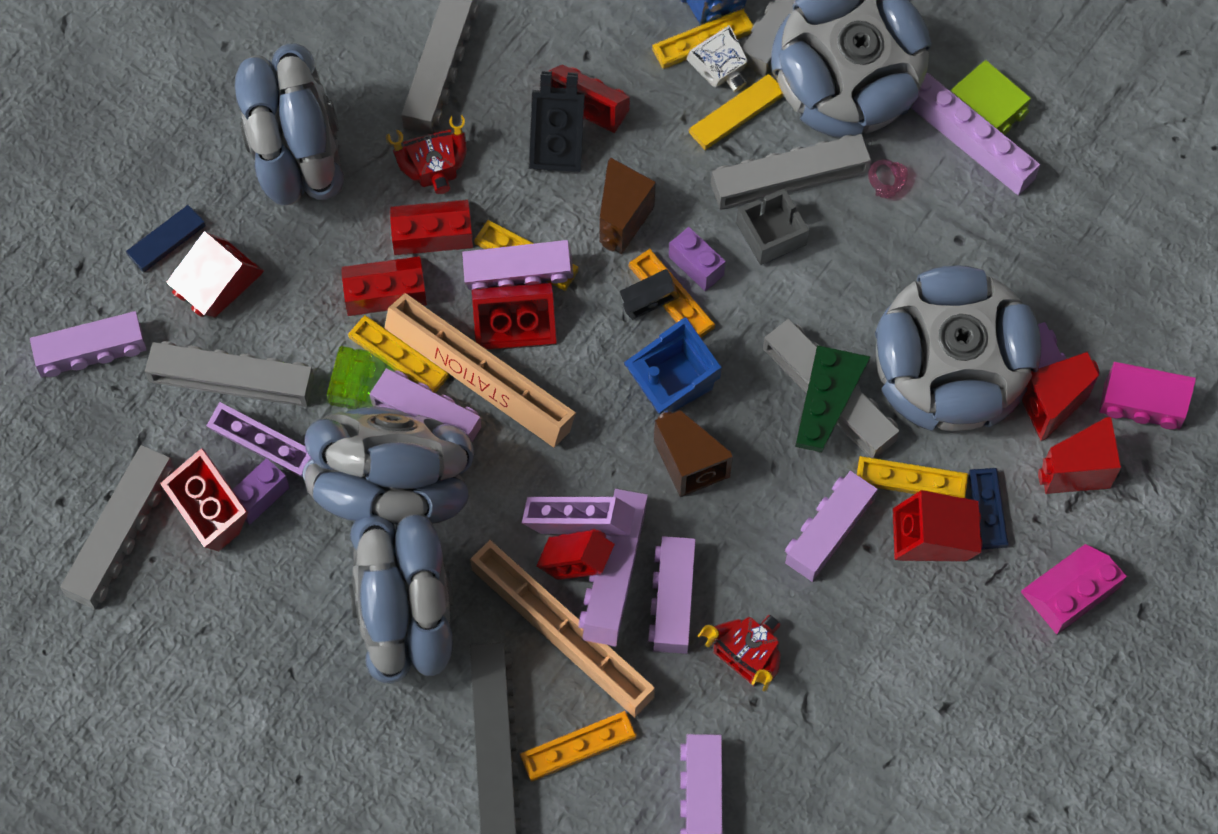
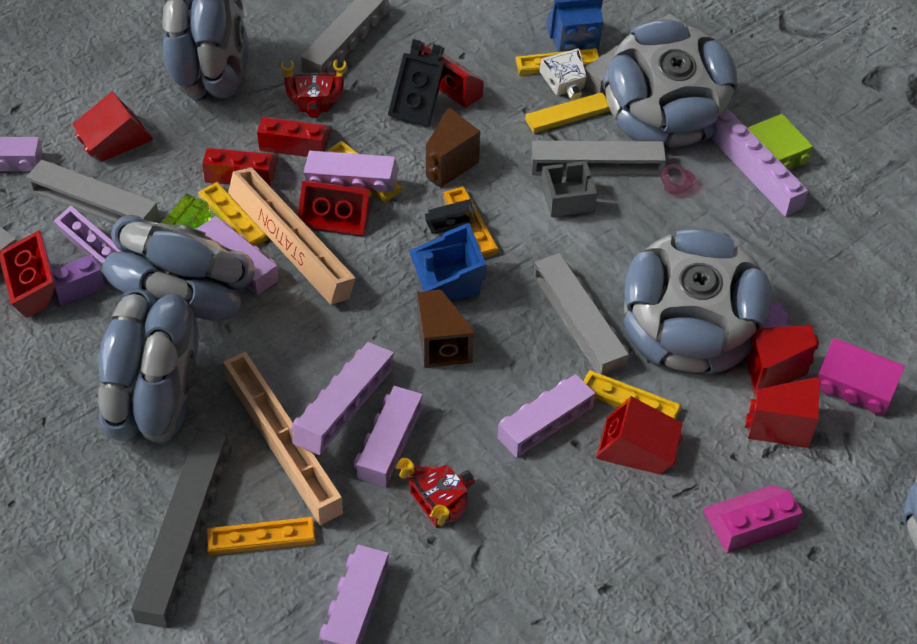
camera: 15 degrees right, 15 degrees down
(165, 238) = (81, 103): dark blue tile -> none
(575, 554) = (313, 378): red brick -> none
(579, 514) = (326, 348): lavender brick -> none
(696, 259) = (499, 199): medium lavender brick -> none
(829, 389) = (573, 312): dark green wing -> none
(987, 492) = (693, 430): dark blue tile -> none

